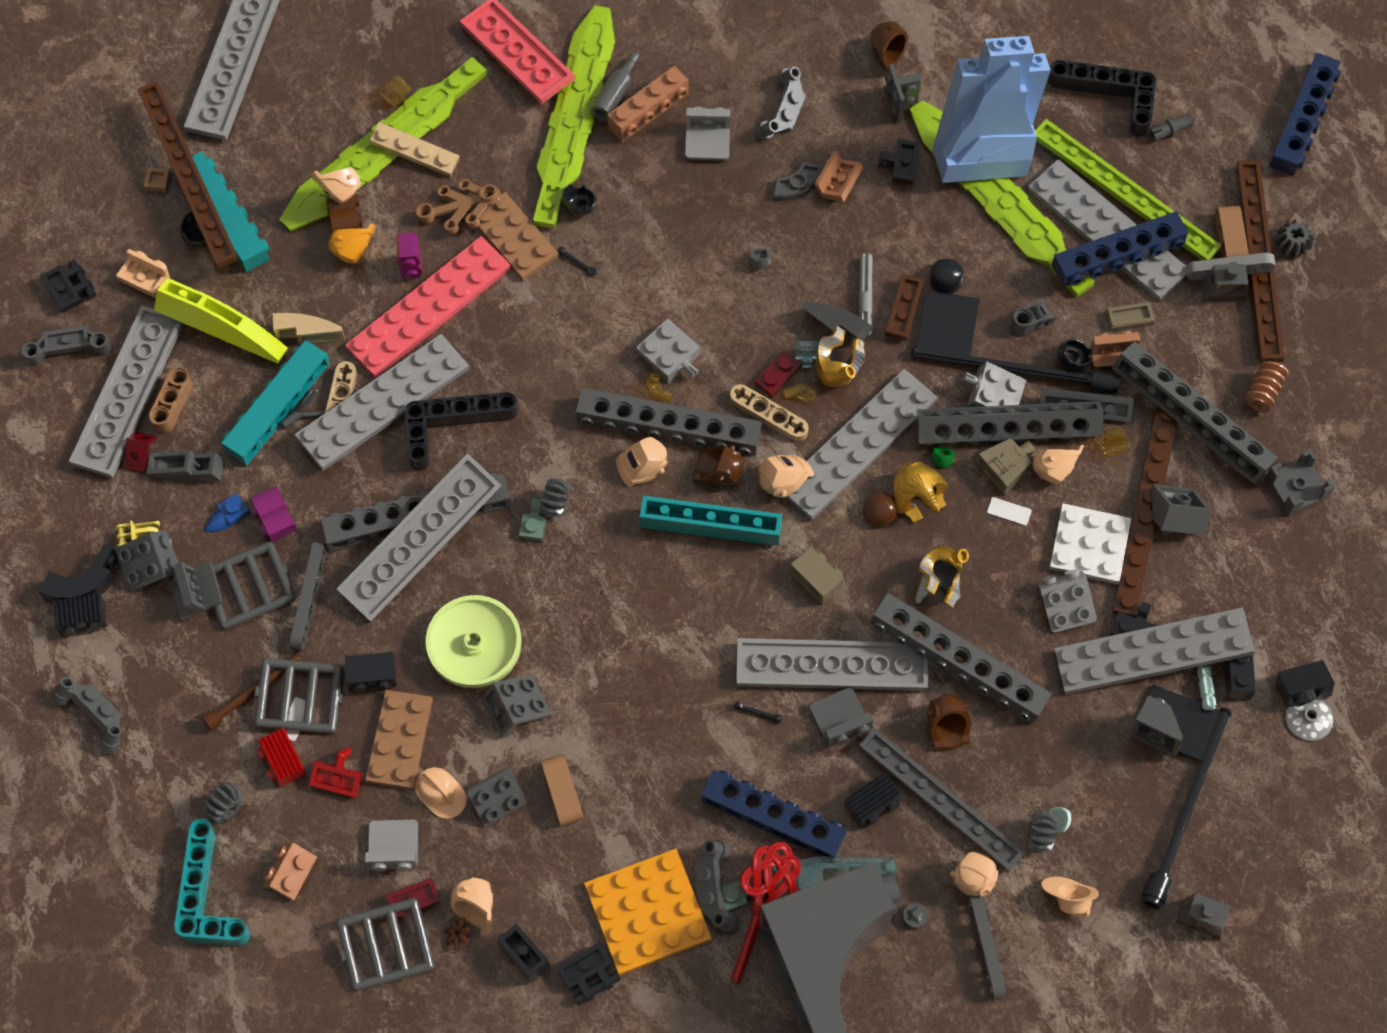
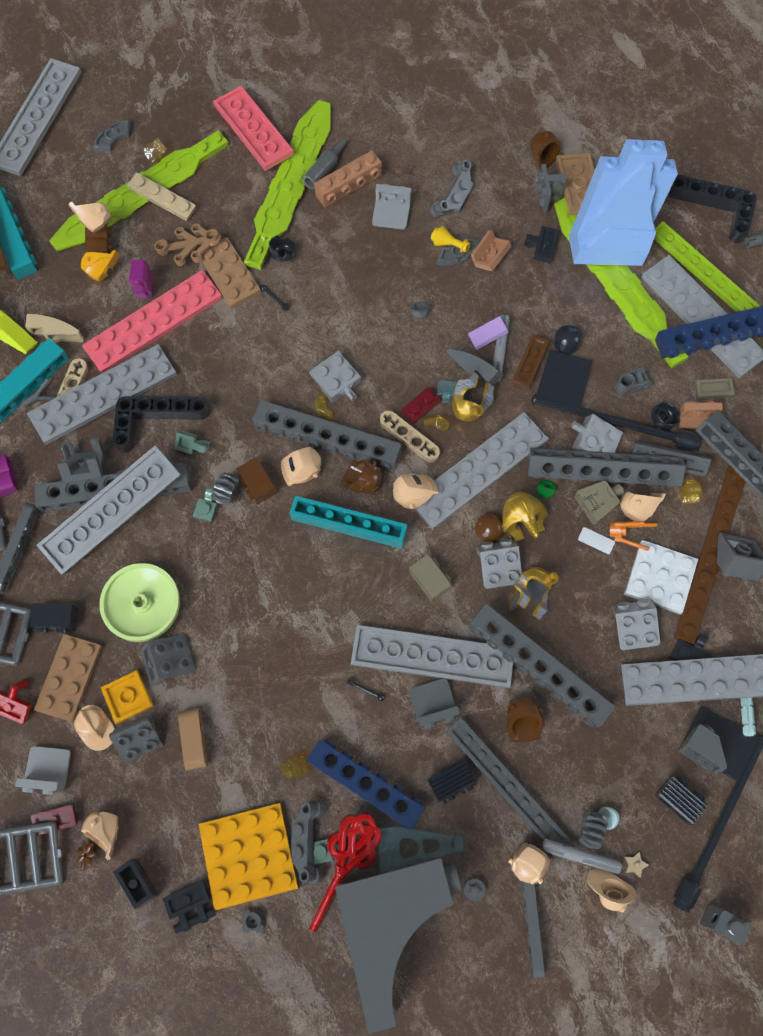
camera: 10 degrees right, 5 degrees up
(333, 77) = (113, 134): none -> dark grey tile
(375, 488) = (81, 465): none -> dark grey panel
(474, 753) = (127, 697): none -> light orange tile
(498, 449) = (187, 443): none -> sand green plate
(590, 485) = (256, 480): none -> reddish brown brick
(668, 974) = (248, 925): none -> dark grey plate
(689, 805) = (296, 766): none -> clear yellow piece
(776, 165) = (442, 237): none -> yellow piece
(848, 278) = (488, 333): none -> lavender tile
(897, 549) = (499, 563): none -> light grey bracket
(936, 72) = (579, 173): none -> medium nougat plate
(1032, 861) = (581, 856): none -> light grey axle
(1035, 493) = (619, 529): none -> orange plant
(1095, 867) = (635, 864): none -> tan piece
(1139, 788) = (681, 799): none -> black brick

